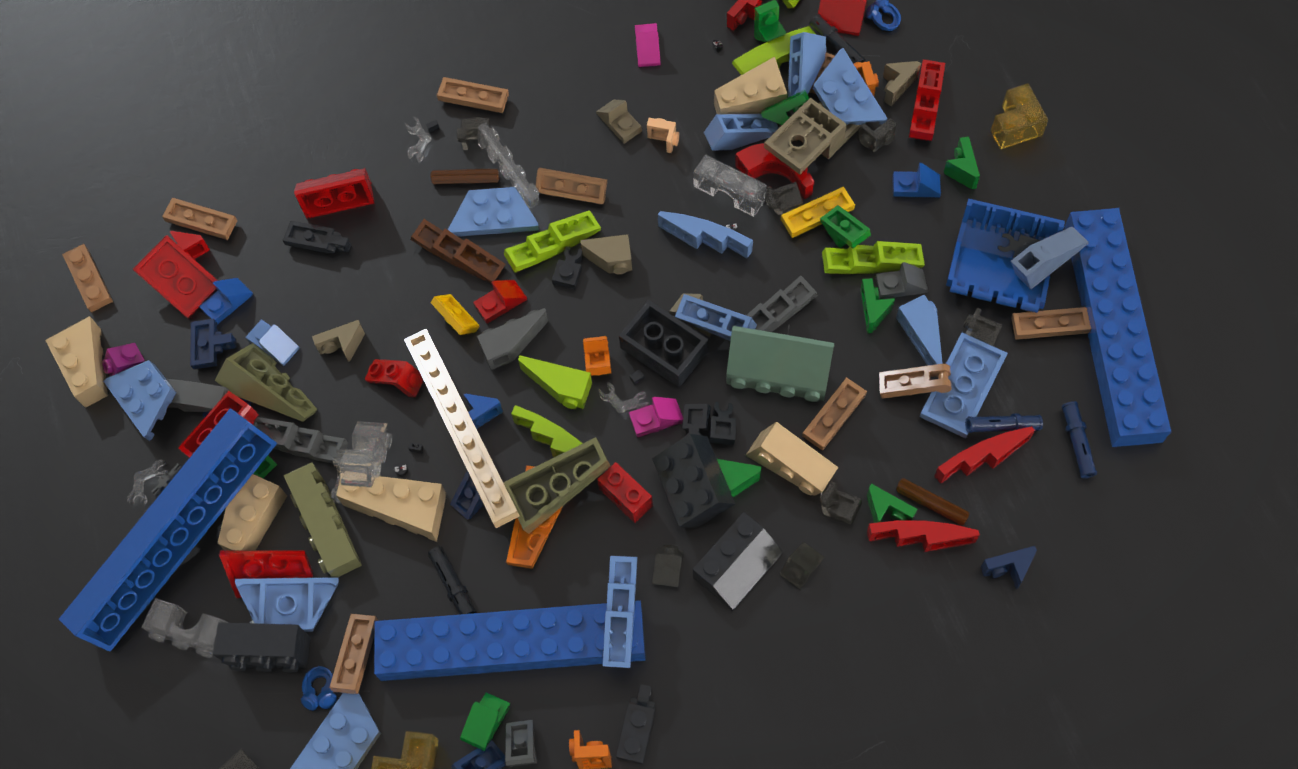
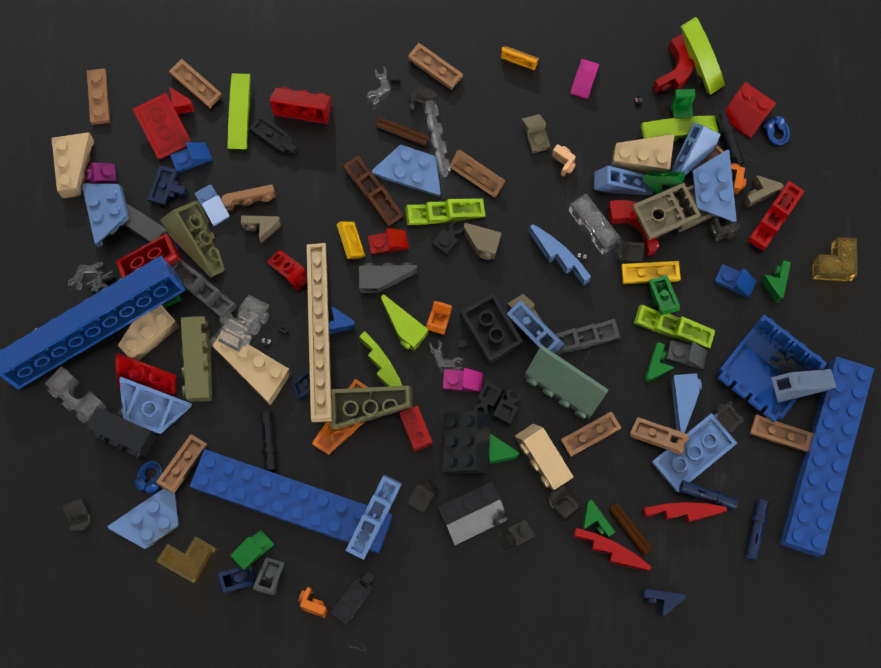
camera: 15 degrees right, 10 degrees up
(263, 227) = (239, 111): none -> lime slope
(312, 314) = (248, 196): none -> medium nougat plate
(563, 51) = (519, 57): none -> light orange slope

